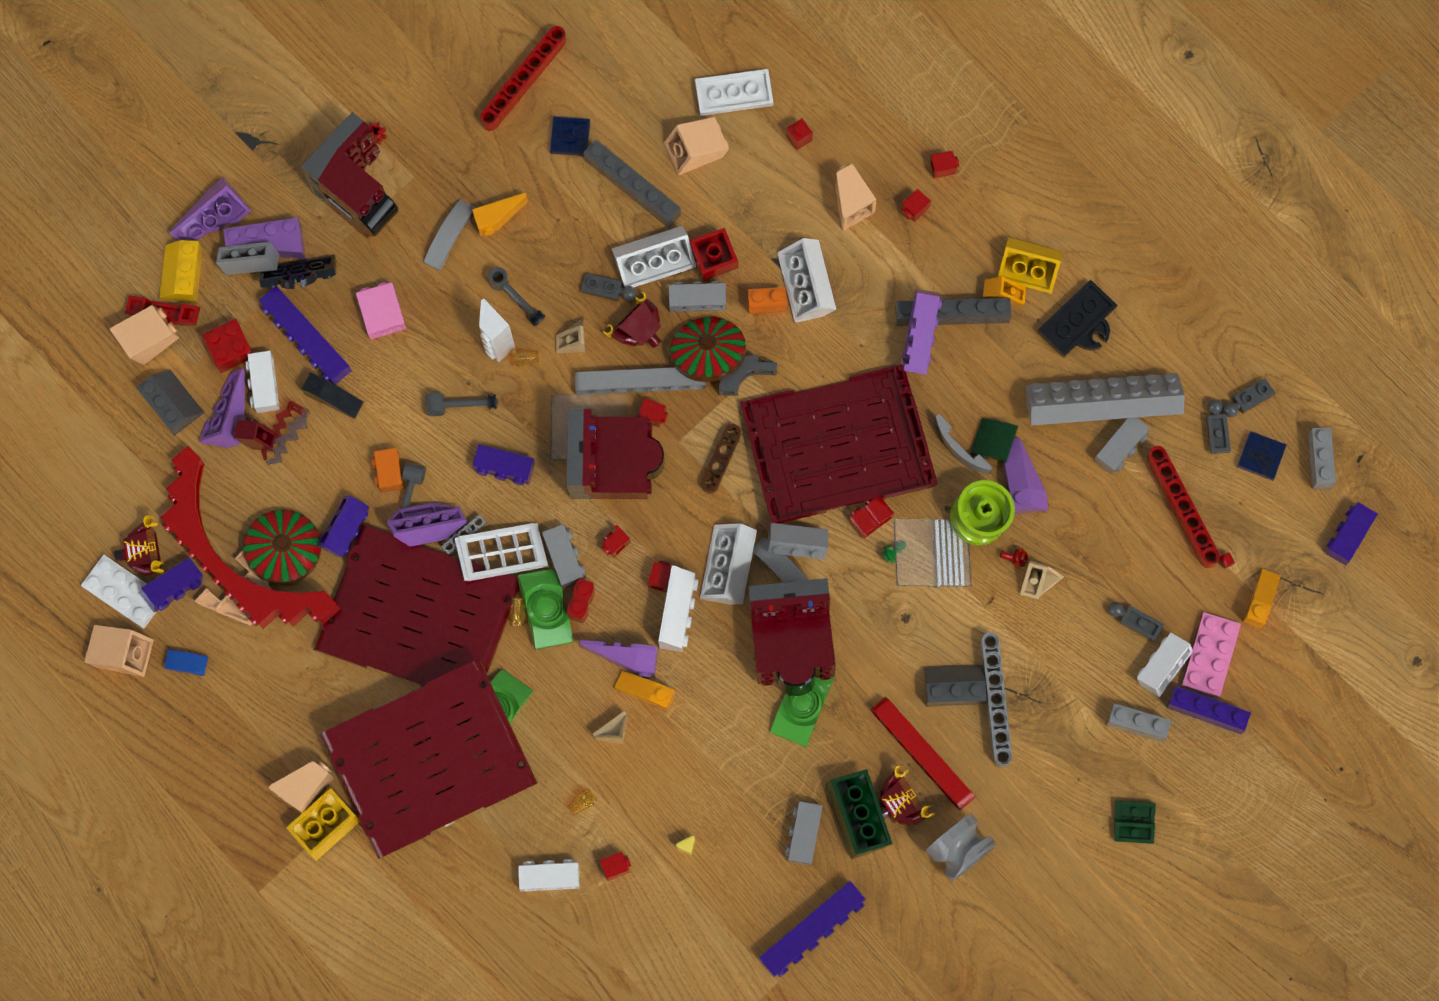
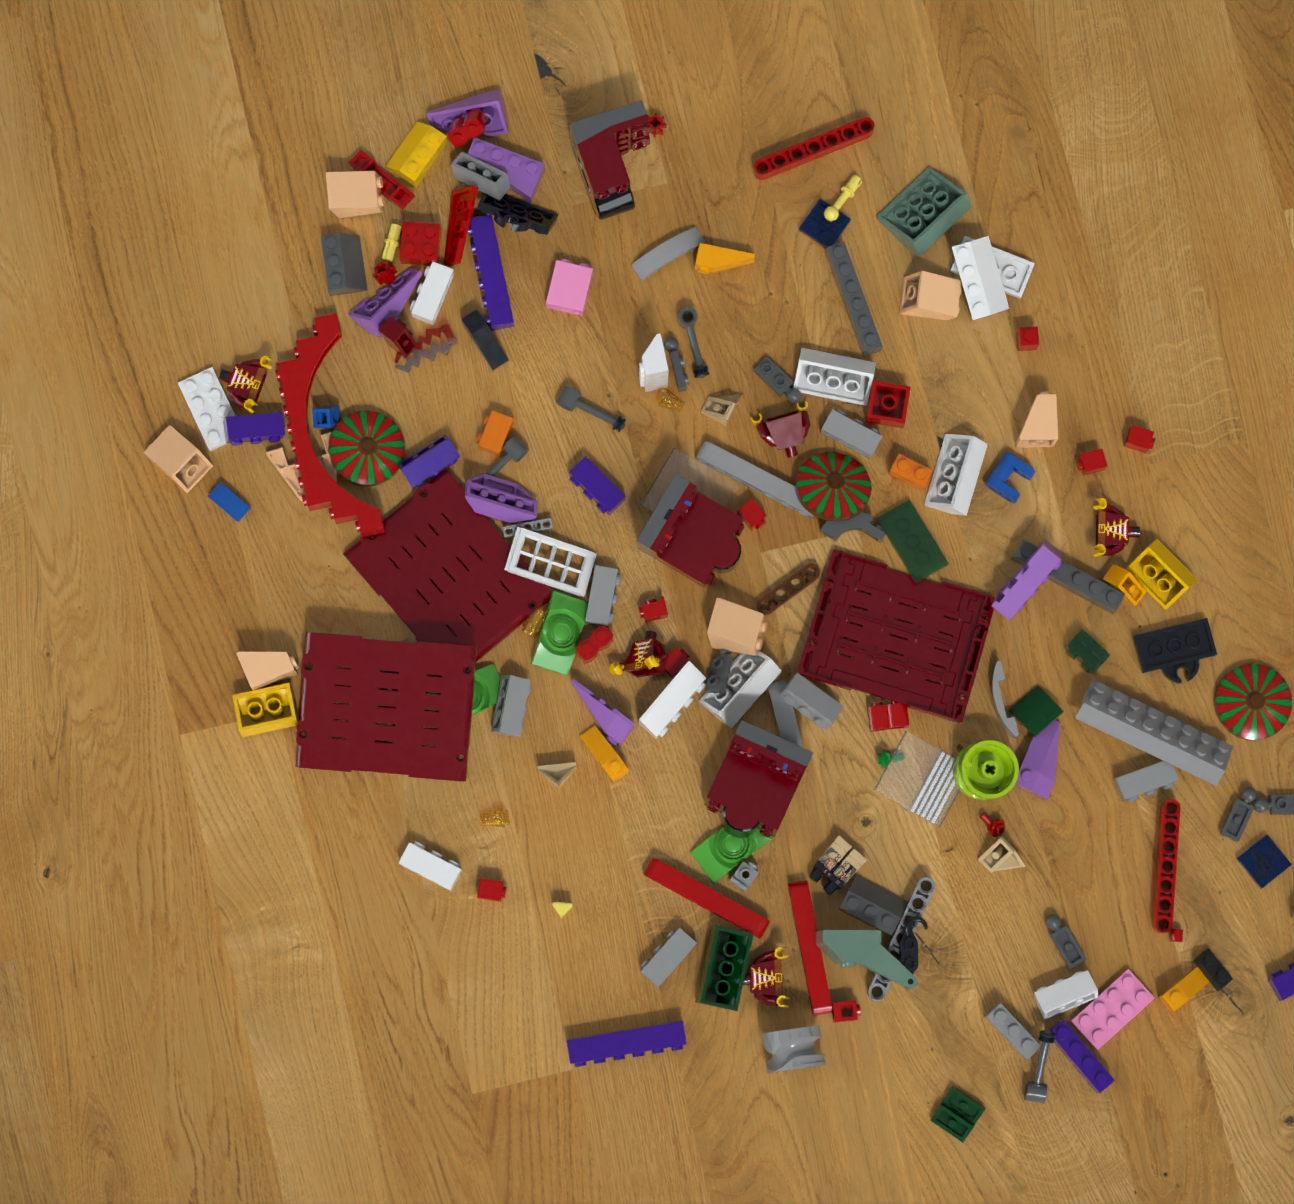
camera: 25 degrees right, 5 degrees up
(202, 359) = (391, 242): none -> light yellow axle
(211, 388) = (384, 273): none -> red gear
(215, 221) = (467, 127): none -> red brick
(230, 539) = (326, 416): none -> blue brick
(251, 307) = (459, 221): none -> red wing
(523, 333) = (671, 345): none -> dark grey plate
(538, 695) = (510, 706): none -> light grey brick
(570, 123) = (831, 213): none -> light yellow pin
(632, 587) = (645, 658): none -> torso
(649, 77) = (924, 211): none -> sand green slope
(696, 515) = (736, 628): none -> light nougat slope
(702, 559) = (719, 672): none -> dark grey plate
(729, 105) = (980, 277): none -> white slope
(803, 358) = (912, 541): none -> clear green tile
(807, 762) = (706, 897): none -> red beam
(826, 731) = (744, 883): none -> light grey brick
(844, 260) = (1003, 471): none -> blue connector
(903, 675) = (834, 871): none -> hips
(966, 251) = (1112, 529): none -> torso
(970, 724) = (864, 948): none -> sand green slope
(991, 783) = (838, 1007): none -> red brick
(1007, 365) = (1087, 652): none -> clear green brick
(1171, 328) = (1253, 702): none -> dish
(1189, 761) = (1035, 1090): none -> dark grey piece
(1275, 571) = (1212, 969): none -> pearl dark grey plate

